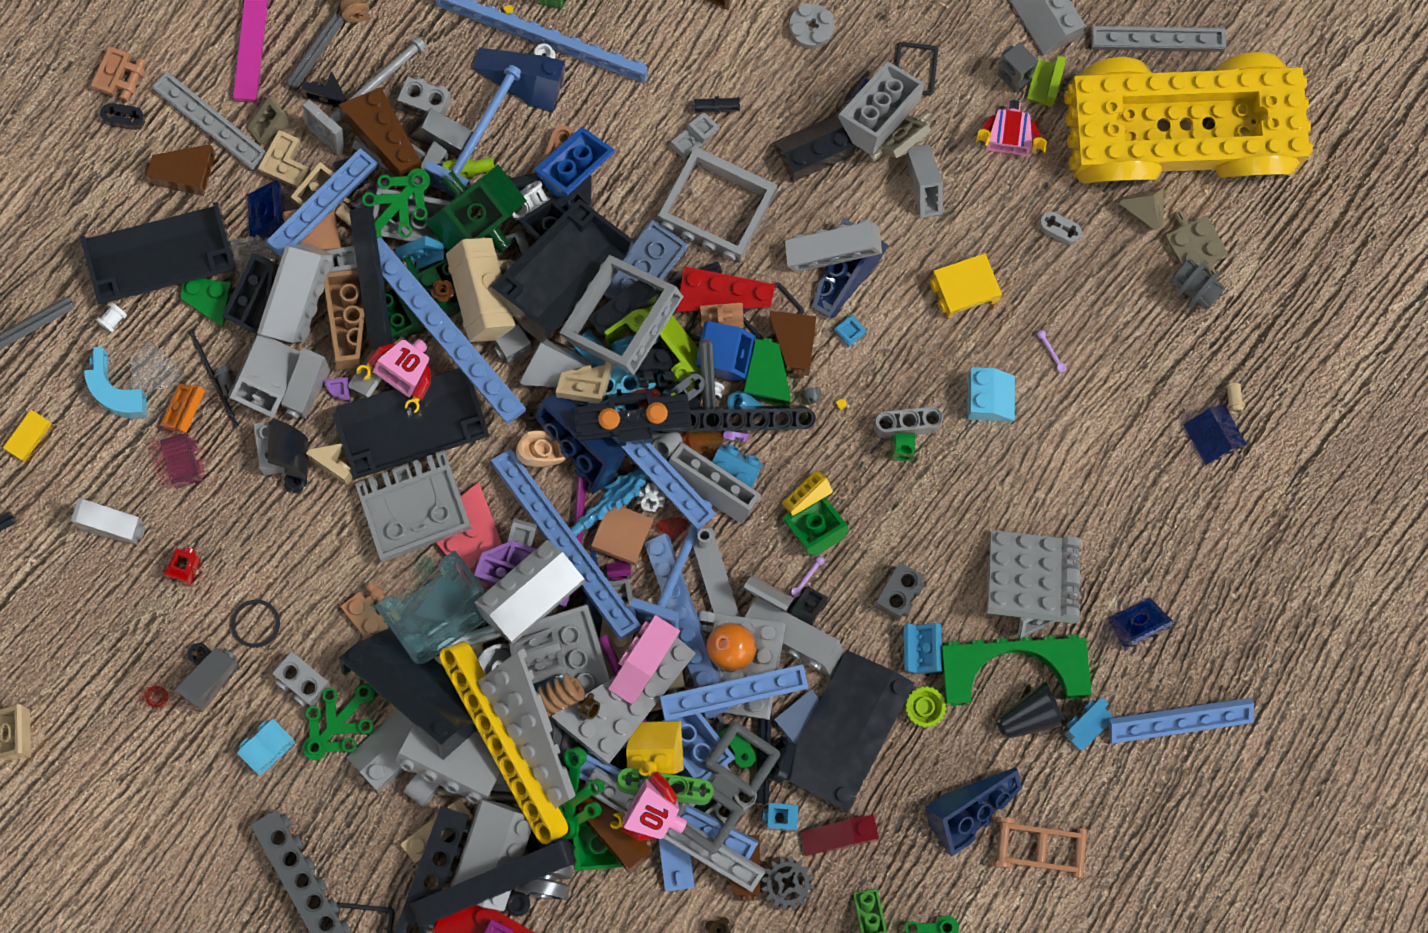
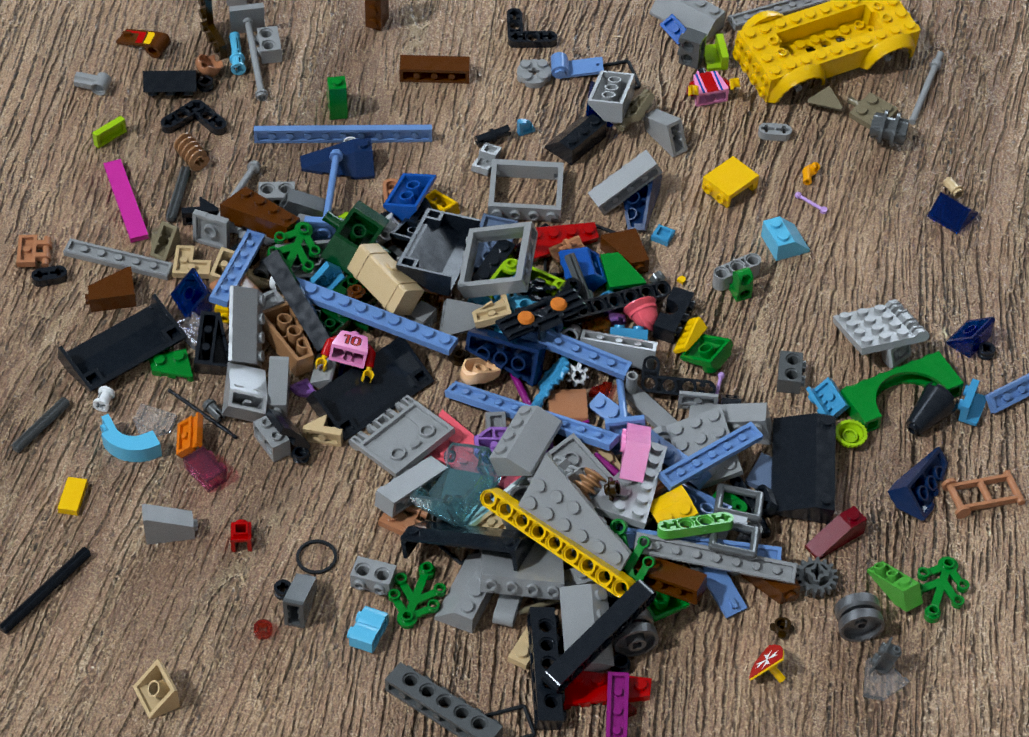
camera: 20 degrees left, 25 degrees down
(393, 579) = (396, 494): none -> light grey brick
(616, 197) = (442, 202): none -> yellow slope
(652, 809) = (695, 537): torso -> none
(731, 647) = (690, 434): orange cylinder -> none
(760, 555) = (678, 381): none -> black beam
(762, 107) = (524, 127): none -> dark azure tile
(768, 444) = (642, 312): none -> coral piece
(790, 471) = (670, 326): none -> black arch
(790, 815) = (787, 536): dark azure brick -> none
(866, 37) = (562, 68): none -> medium blue door
(1015, 25) = (673, 28): none -> plate
(1071, 305) = (809, 171): none -> light orange arm
(1154, 655) = (986, 355): none -> black bush
(1311, 201) = (935, 66): none -> light grey bar

